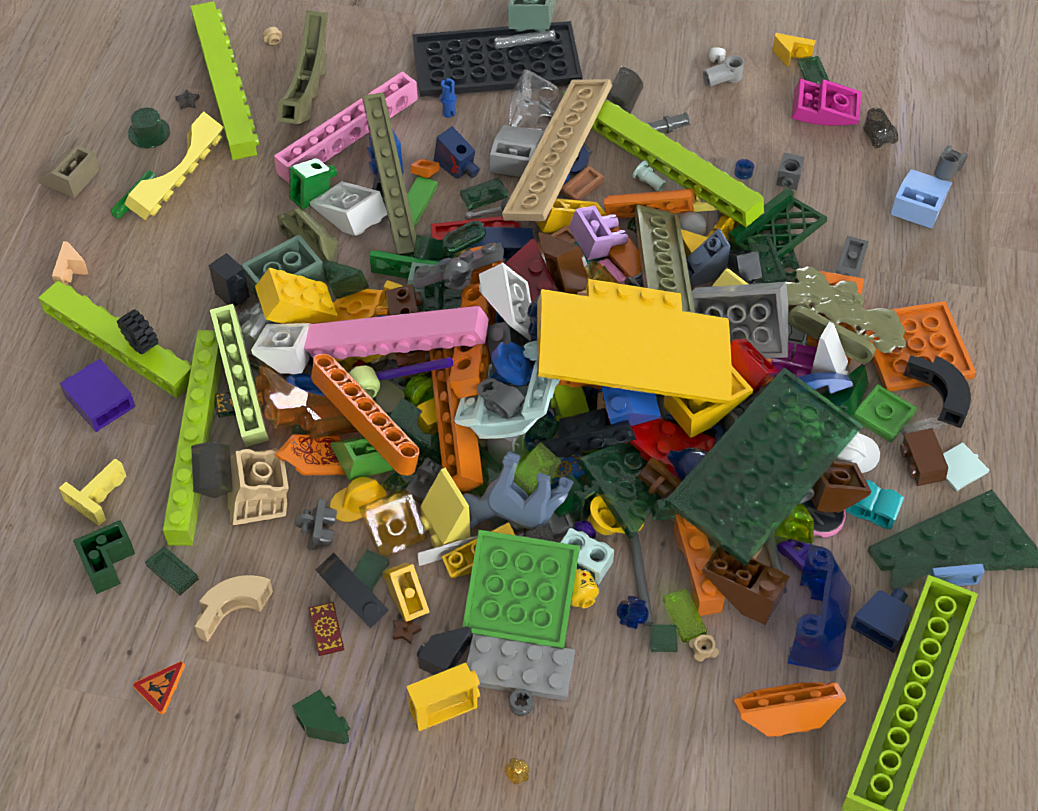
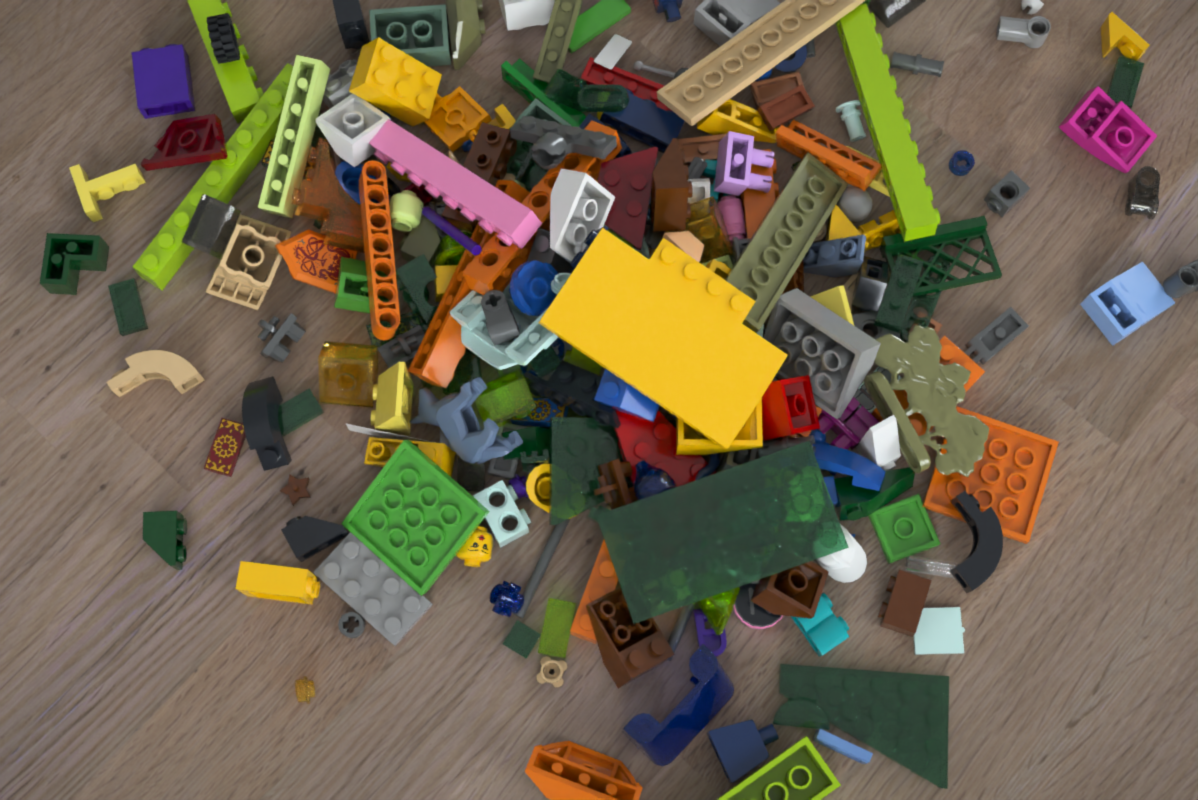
camera: 30 degrees right, 20 degrees up
(150, 424) = (189, 142): none -> dark red wing
(160, 686) = (47, 421): piece -> none
(344, 279) = (459, 82): clear green slope -> none
(358, 493) = (335, 326): yellow piece -> none
(406, 591) = (315, 453): yellow slope -> none
(444, 214) = (613, 51): none -> white sticker
(484, 194) = (670, 47): clear green plate -> none
(597, 189) = (785, 107): none -> copper tile

